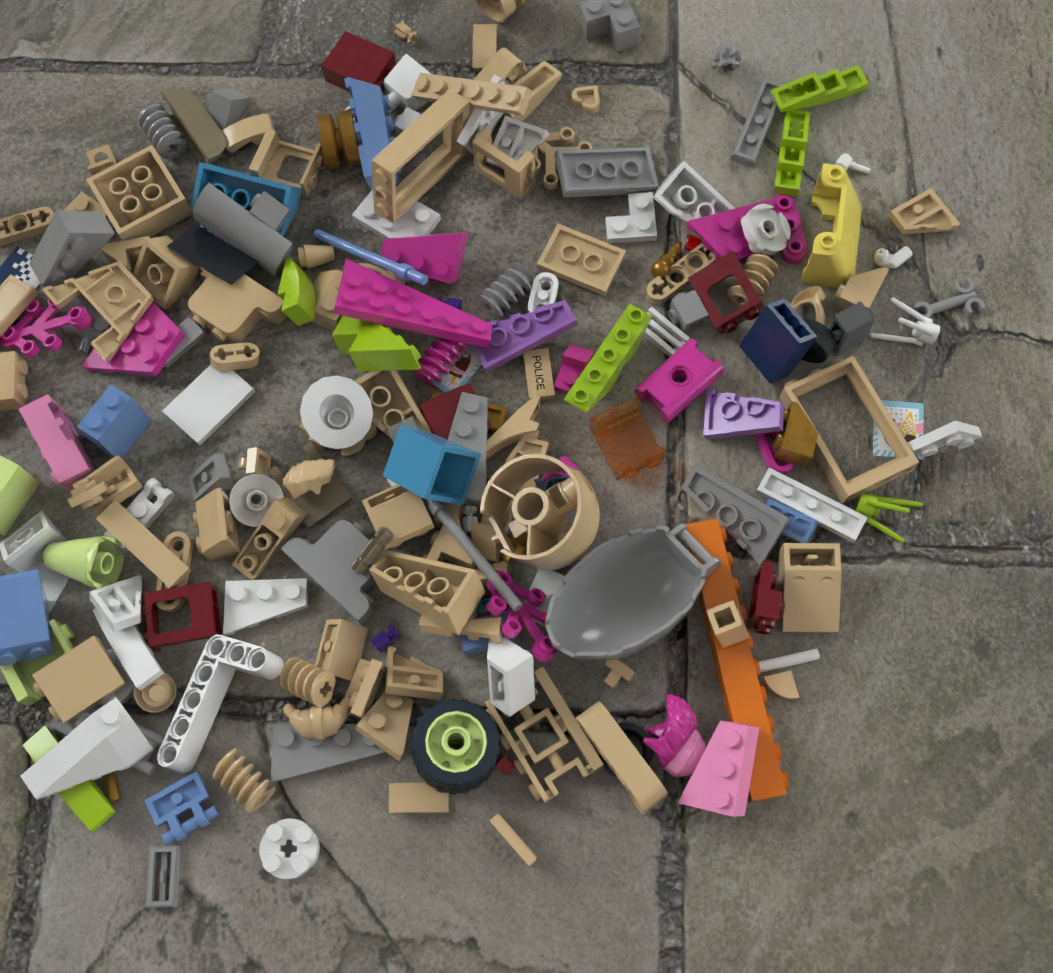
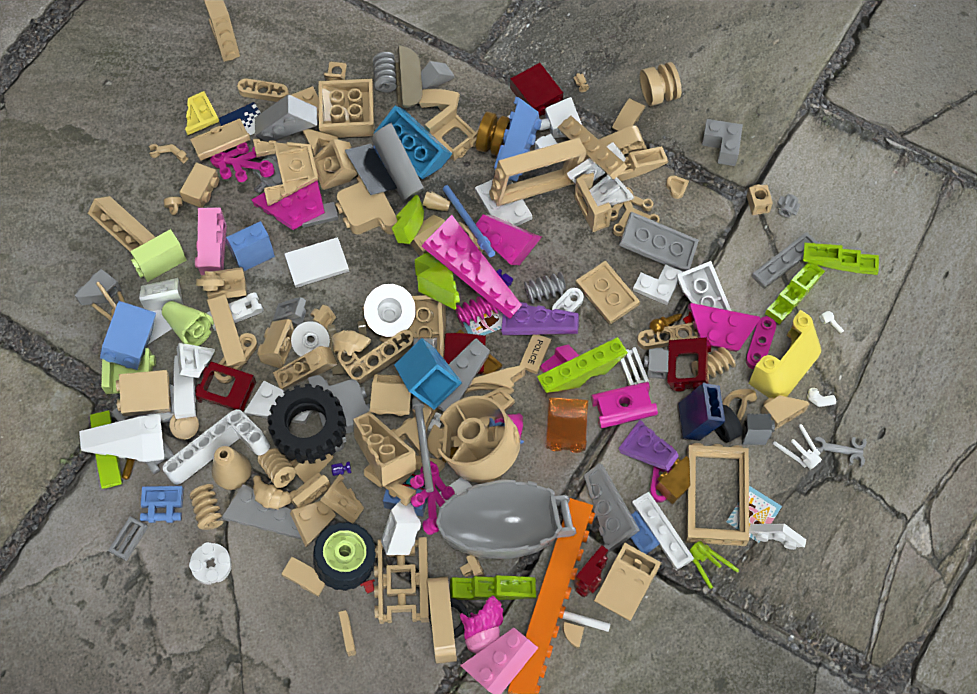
camera: 25 degrees right, 5 degrees down
(234, 356) = (348, 242): tan beam -> none
(247, 714) = (230, 468): none -> tan cone
(269, 210) = (421, 159): light grey brick -> none
(293, 579) = (302, 400): none -> black tyre
(353, 472) = (377, 353): none -> tan beam
(372, 550) = (361, 408): dark tan axle -> none
(656, 682) = (499, 586): none -> lime slope
(690, 67) = (756, 205): none -> tan brick
(728, 623) = (556, 572): tan brick -> none
(758, 239) = (731, 339): white plate -> none
(923, 215) = (860, 380): tan wing -> none

